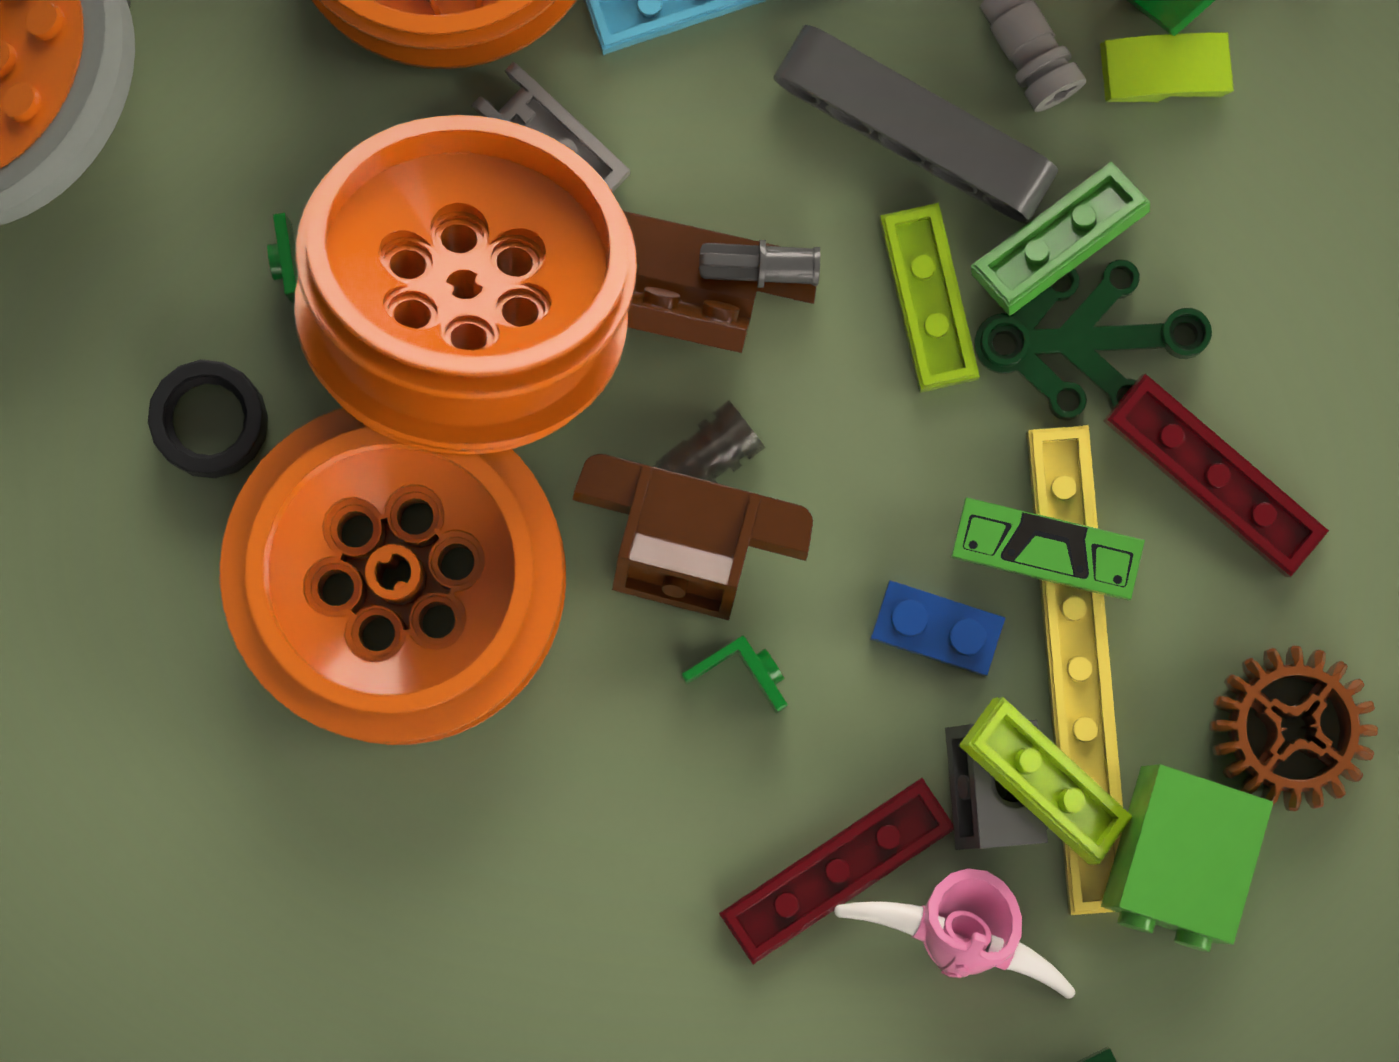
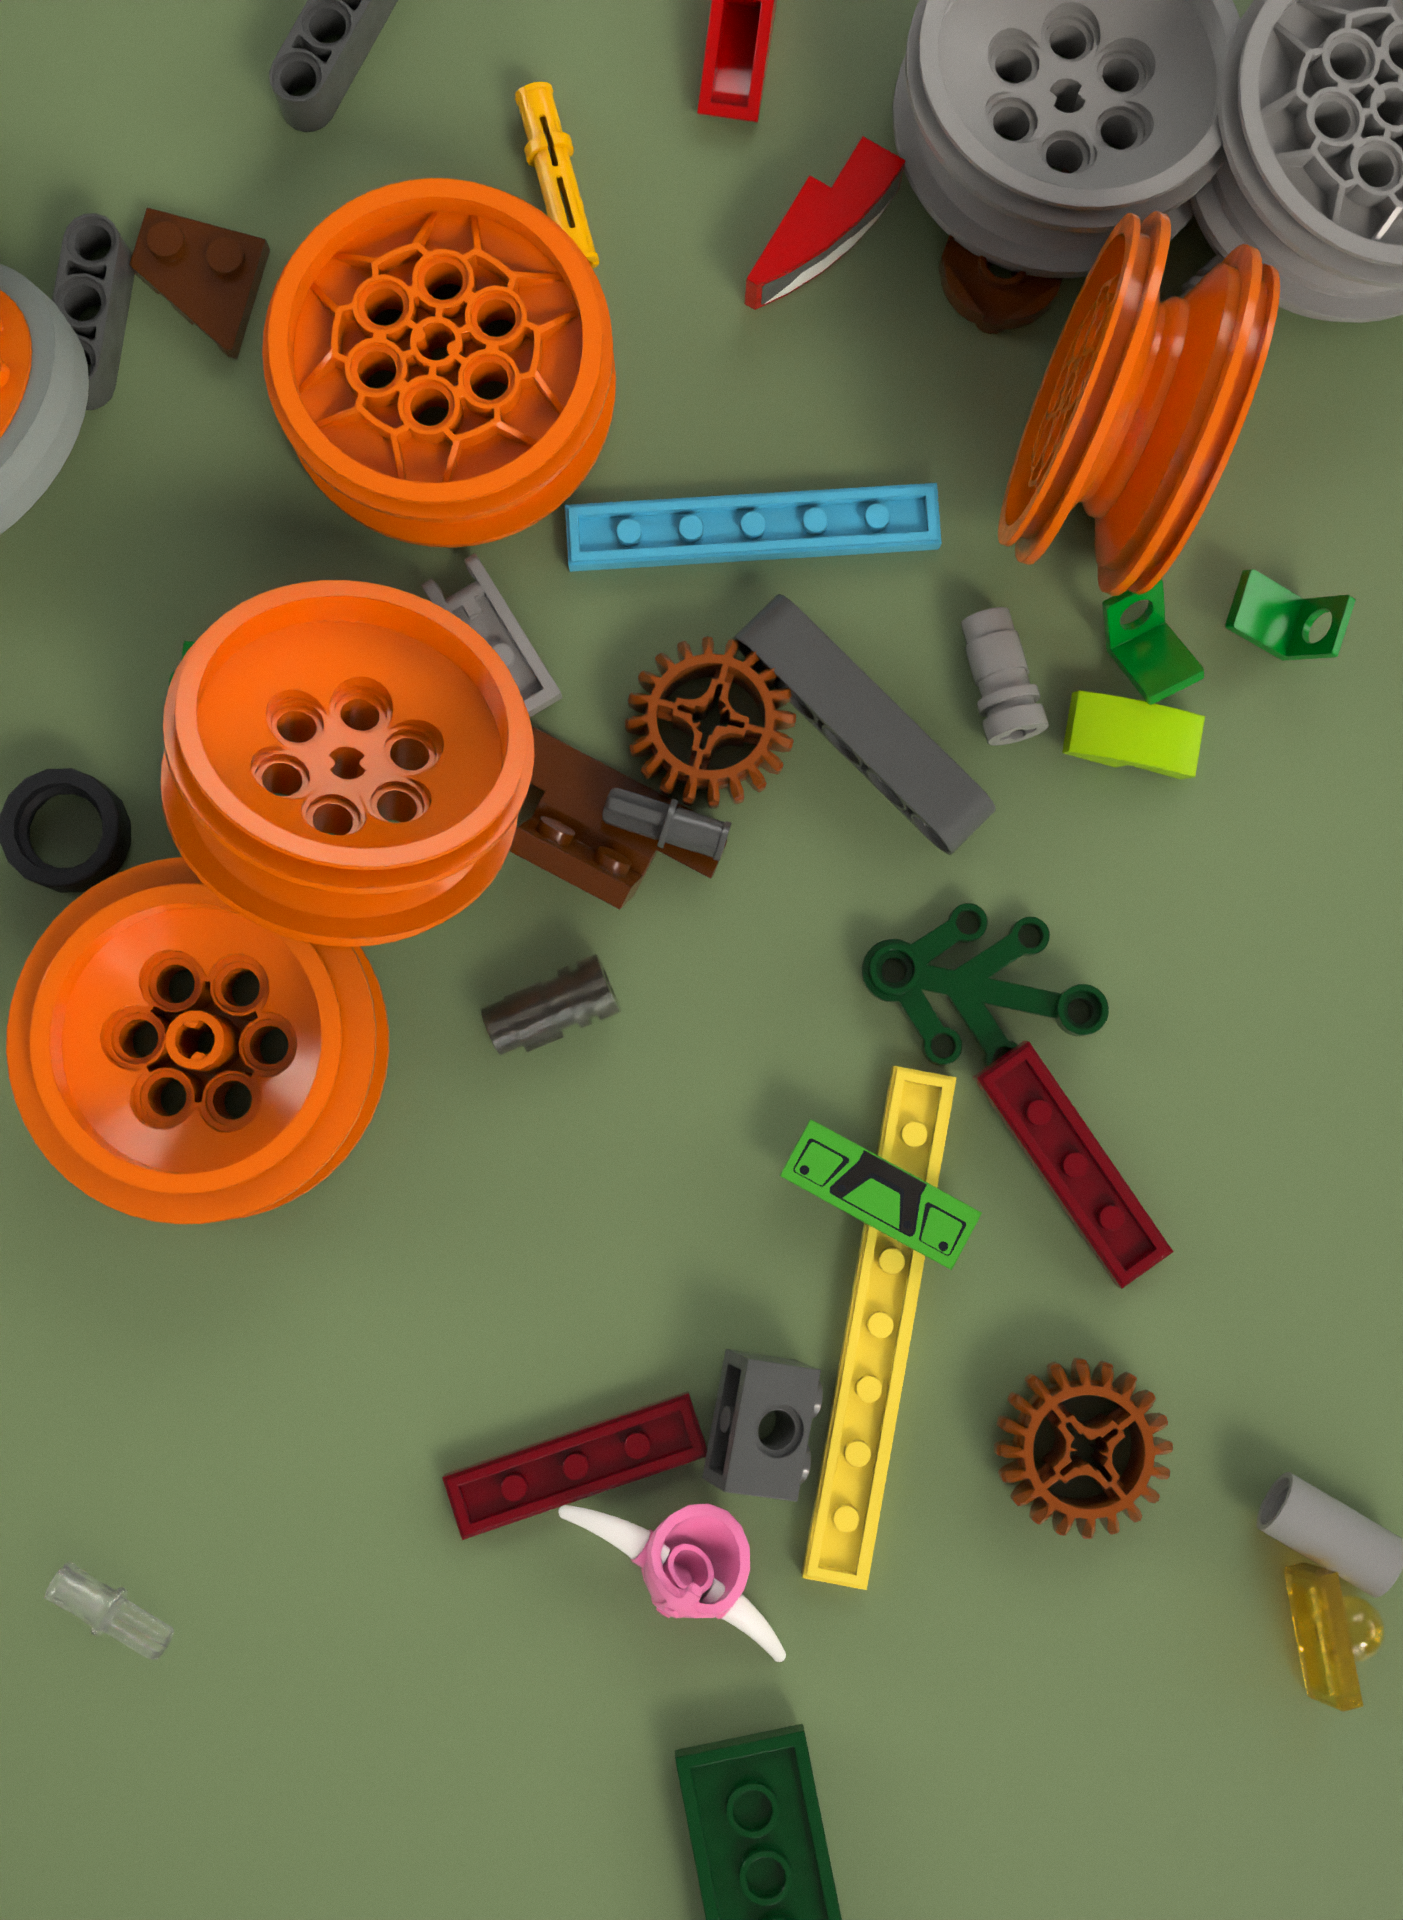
camera: 10 degrees right, 0 degrees up
(688, 533) = (514, 1079): reddish brown plate -> none
(759, 665) = (553, 1235): green bracket -> none
(775, 109) = (683, 712): none -> dark orange gear
(929, 297) = (830, 903): lime tile -> none
(937, 628) = (746, 1243): blue plate -> none
(1045, 780) = (811, 1437): lime tile -> none
(1060, 238) = (979, 879): bright green tile -> none
(1186, 857) = (936, 1555): bright green brick -> none

